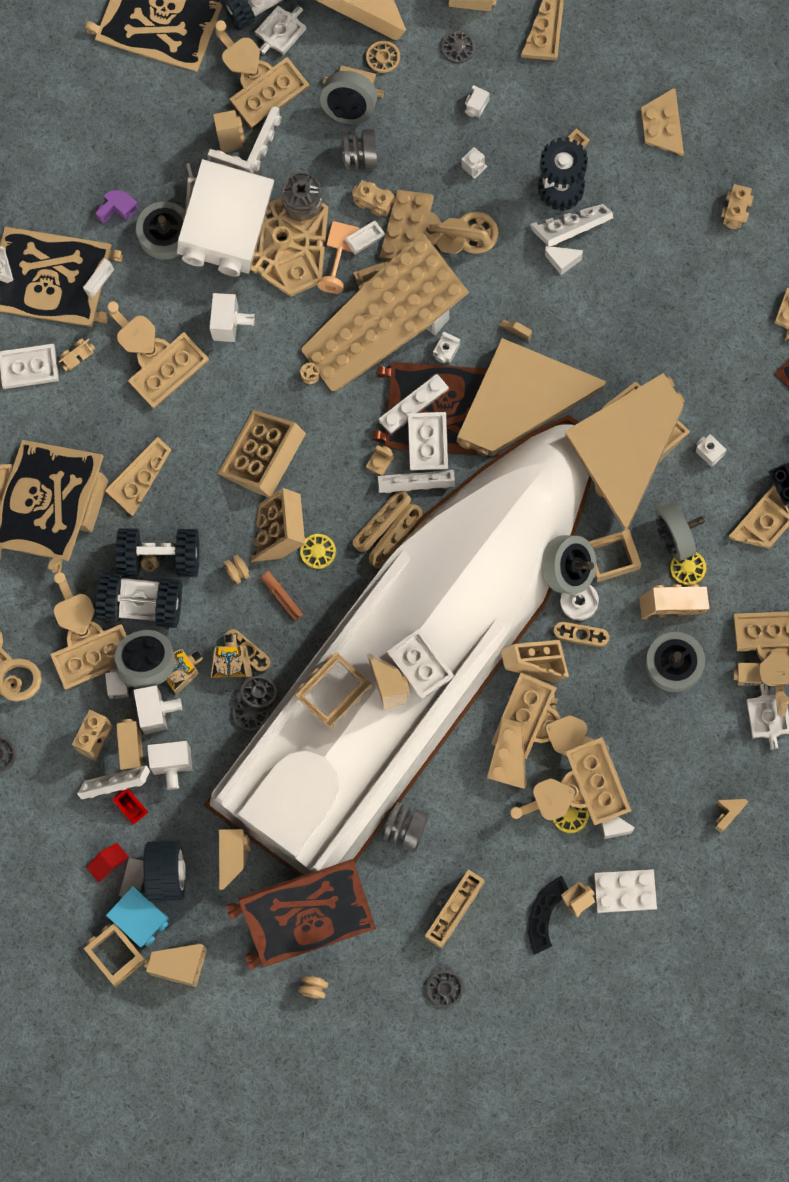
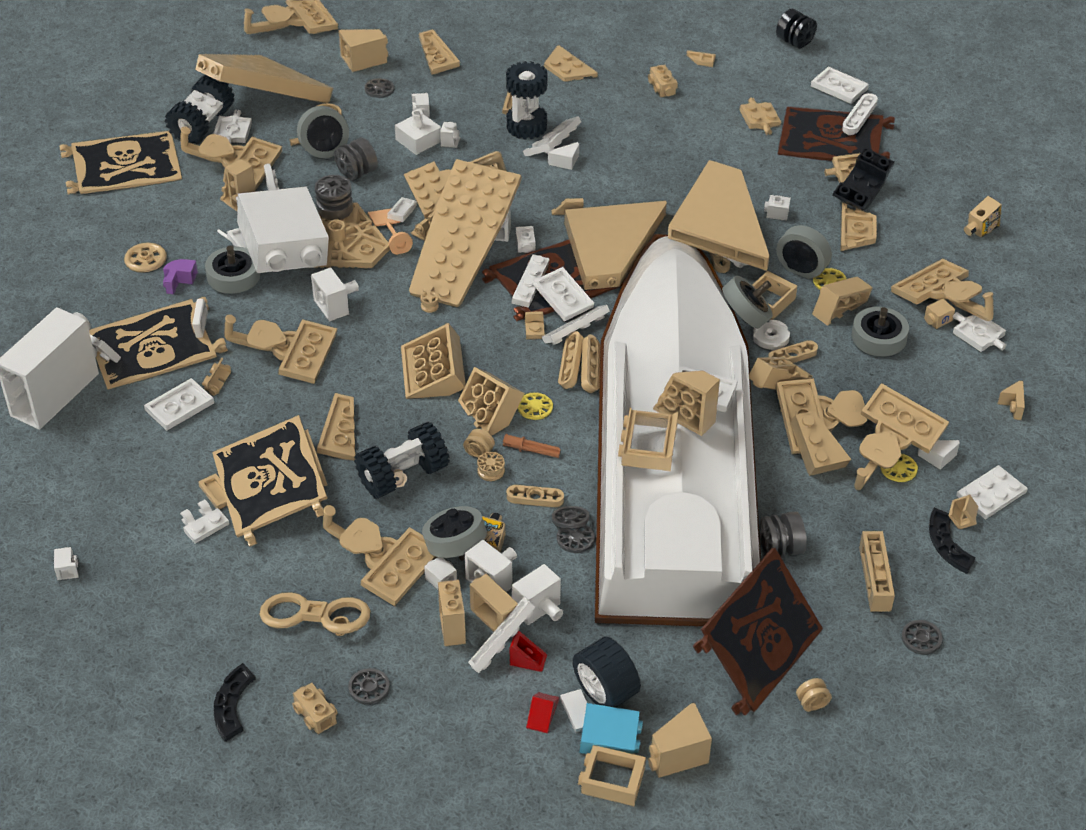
camera: 40 degrees left, 30 degrees down
(97, 174) = (145, 257): none -> tan plate
(139, 599) = (413, 498): black plate -> none
(231, 660) = (529, 503): torso -> none
(232, 597) = (490, 467): none -> tan wheel
(232, 854) = (656, 624): tan wedge -> none
(373, 198) = (389, 184): tan brick -> none
(445, 142) = (418, 132): none -> white brick

